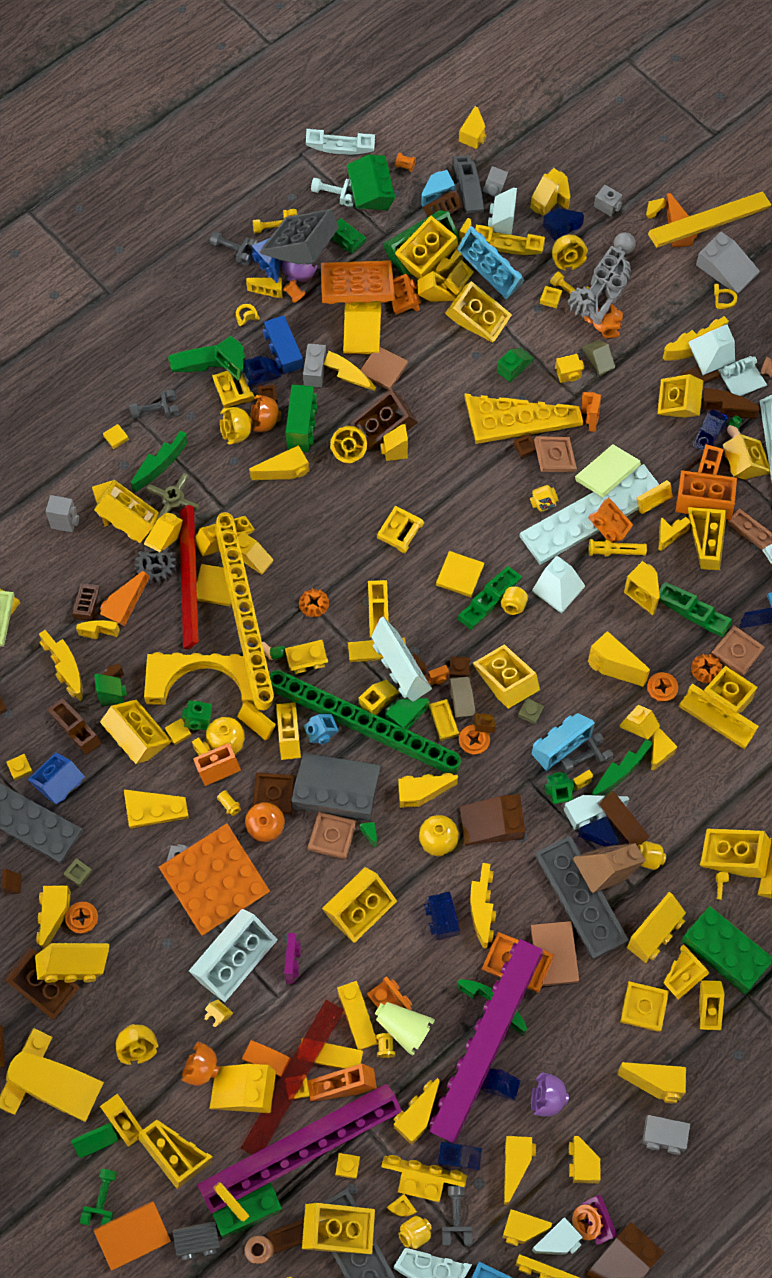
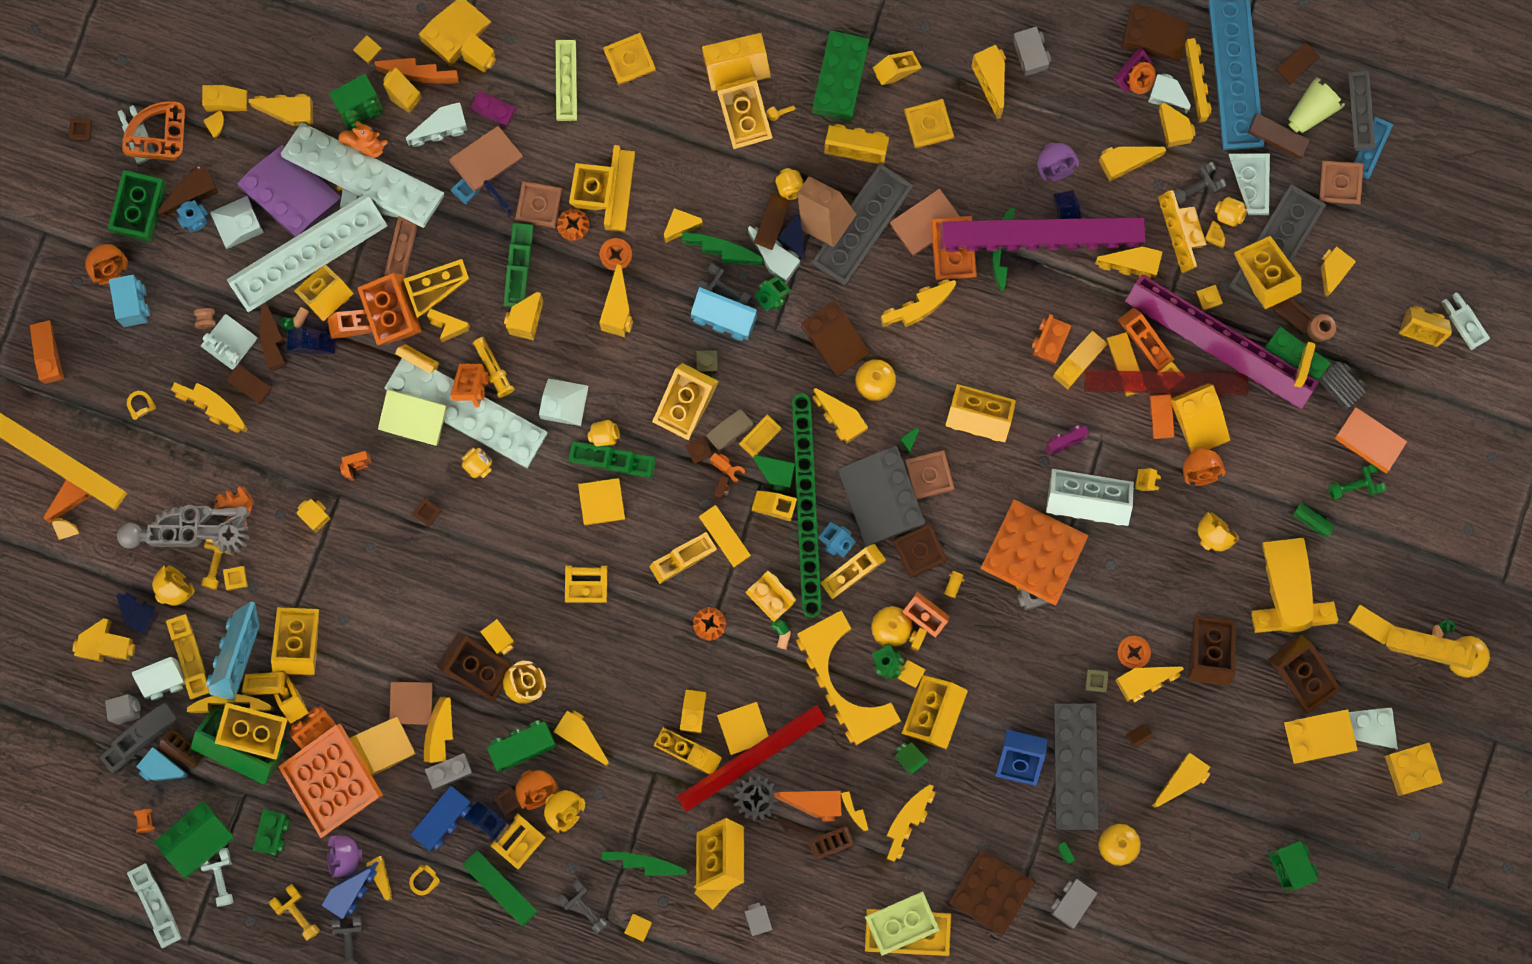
camera: 120 degrees left, 15 degrees up
(19, 767) = (1029, 800): yellow plate -> none
(71, 962) = (1185, 628): yellow slope -> none
(74, 726) = (962, 773): reddish brown slope -> none
(114, 671) = (891, 769): reddish brown plate -> none
(122, 1119) = (1284, 506): yellow slope -> none
(153, 808) = (997, 651): yellow wing -> none
(164, 532) = (722, 807): yellow slope -> none
(173, 496) = (676, 835): olive bar -> none
(173, 1154) = (1288, 443): yellow wedge -> none
(230, 356) = (490, 857): green slope -> none
(244, 618) = (761, 684): yellow beam -> none
(256, 720) = (861, 605): yellow tile -> none
(264, 822) = (954, 540): orange cylinder -> none
(294, 291) = (372, 844): orange bush -> none
(301, 237) = (314, 865): dark grey slope -> none
(385, 1043) = (1091, 321): yellow bush -> none
(399, 660) = (733, 499): light aqua slope -> none
(404, 1025) = (1069, 309): yellowish green cone -> none
(442, 916) = (949, 335): clear blue brick -> none
(459, 1155) = (1150, 208): clear blue slope -> none
(464, 740) = (759, 390): orange gear -> none
(473, 130) = (62, 770): yellow slope -> none
(484, 723) = (745, 395): reddish brown plate -> none
(511, 418) = (403, 546): yellow wing -> none
(513, 363) = (335, 572): green slope -> none
(555, 454) = (420, 478): nougat tile -> none
(582, 780) = (751, 278): yellow tile -> none
(585, 1162) = (1094, 103): yellow slope -> none
(599, 356) = (280, 494): olive slope -> none
(608, 200) = (82, 579): light grey brick -> none
(641, 722) = (668, 253): yellow slope -> none
(680, 396) = (289, 388): yellow slope -> none
(685, 973) = (881, 102): yellow wing -> none
(714, 349) = (218, 380): light aqua slope -> none
(727, 263) = (98, 419): light grey slope -> none

